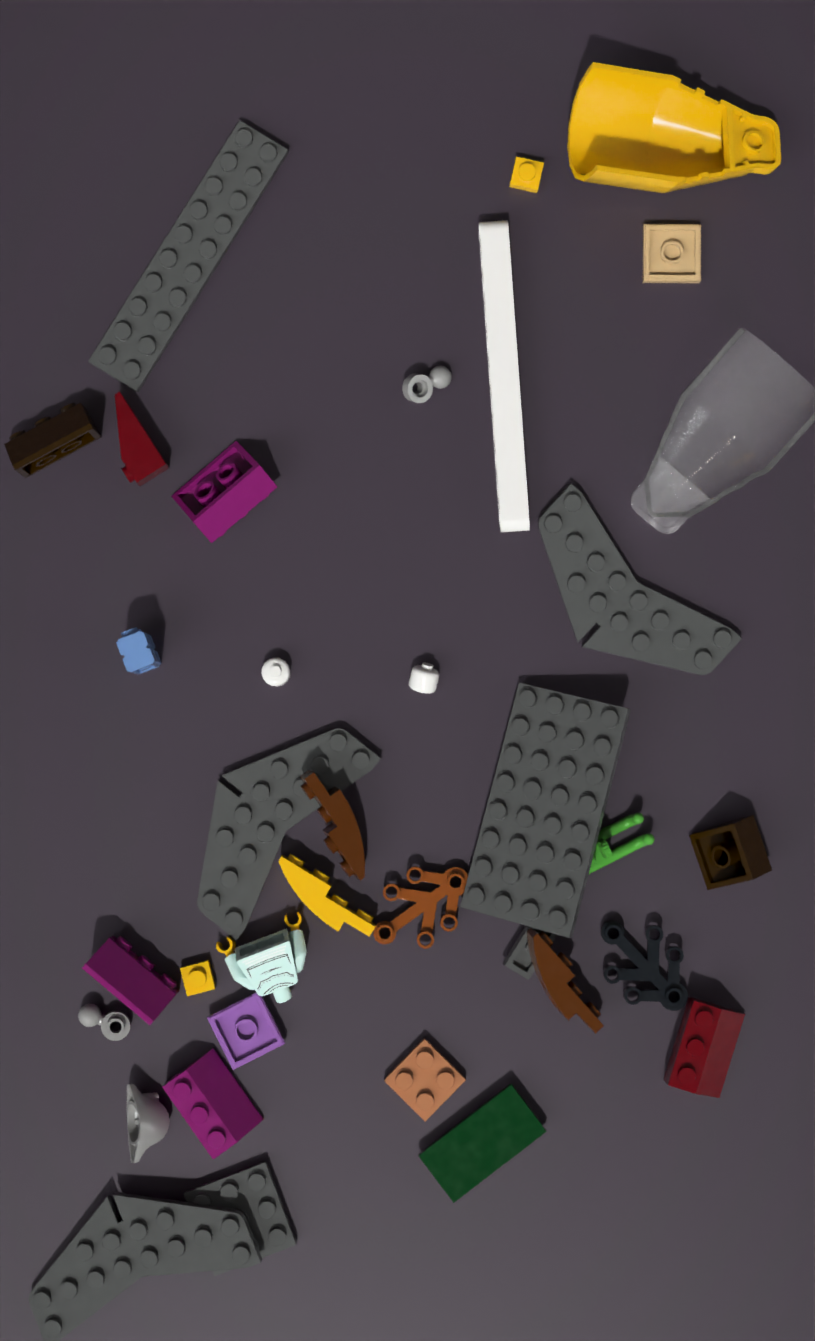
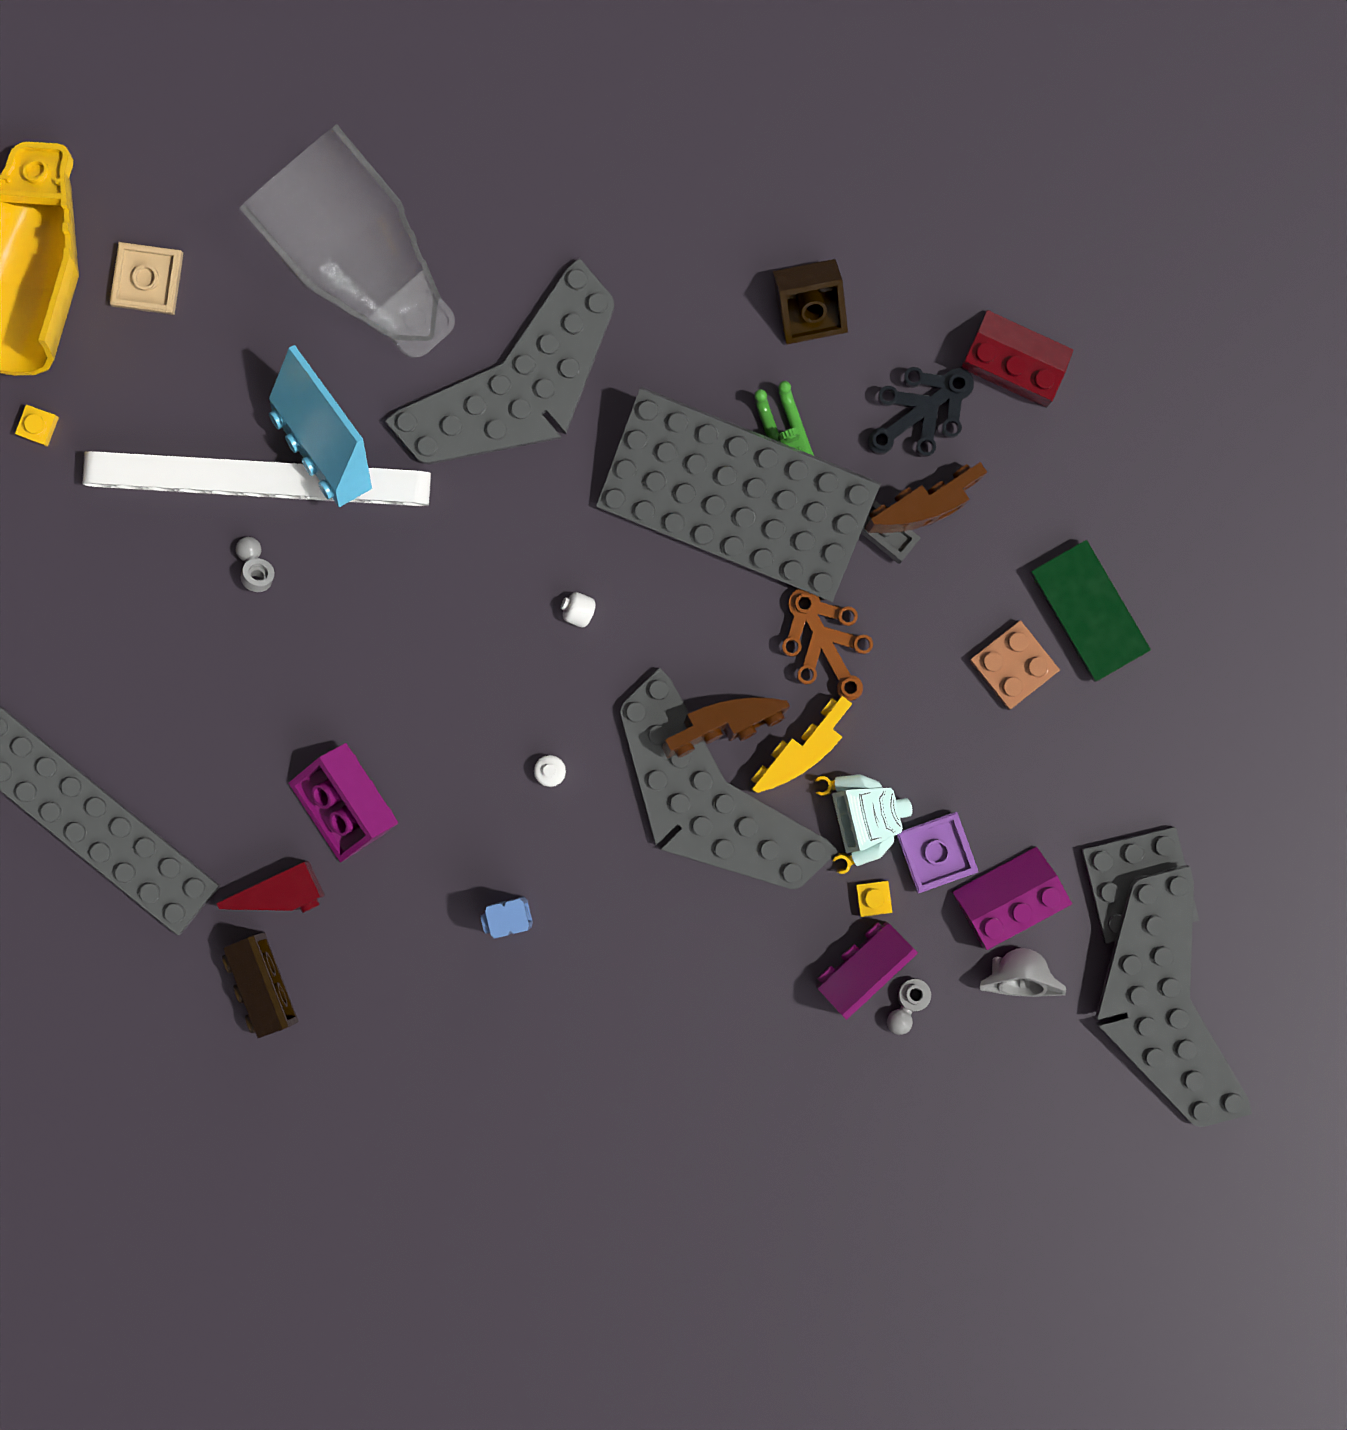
camera: 80 degrees left, 0 degrees up
(551, 425) = (319, 430): none -> medium azure slope

